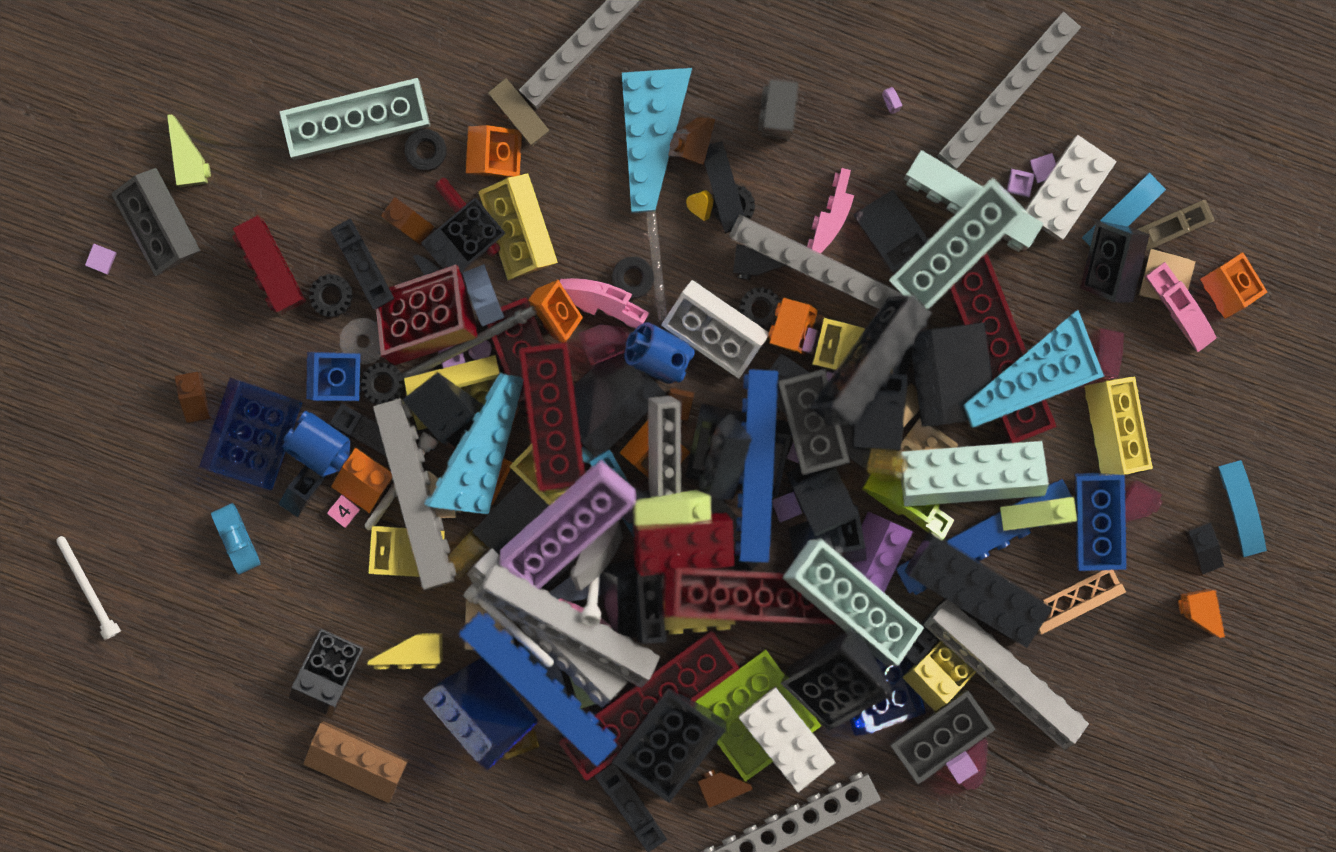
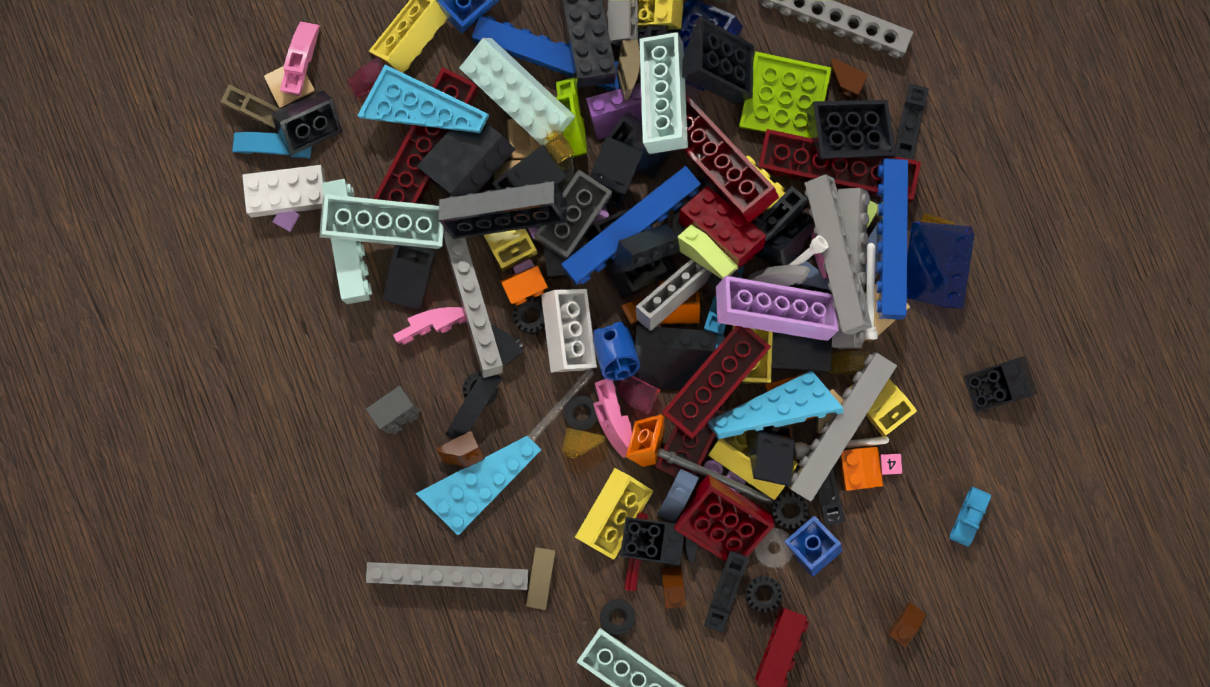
camera: 130 degrees left, 5 degrees down
(108, 627) = (1098, 547): white piece -> none
(250, 434) = (896, 566): clear blue slope -> none
(301, 491) = (900, 501): black slope -> none
(317, 445) = (866, 515): blue cylinder -> none
(355, 761) = (1037, 316): medium nougat slope -> none
(419, 649) = (936, 339): light yellow slope -> none
(493, 151) = (580, 572): orange slope -> none
(607, 252) = (580, 442): none -> clear yellow slope
(700, 204) = (497, 410): yellow tile -> none
(786, 507) = (639, 190): lavender slope -> none
(786, 739) = (783, 63): white brick -> none
(892, 100) = (326, 349): lavender tile -> none
(907, 594) = (628, 66): none -> dark tan slope
(1008, 91) = (256, 281): light grey brick -> none
(1020, 183) = (308, 225): lavender tile -> none
(1038, 513) = (505, 30): yellowish green slope -> none
(1233, 285) = (258, 38): orange slope -> none

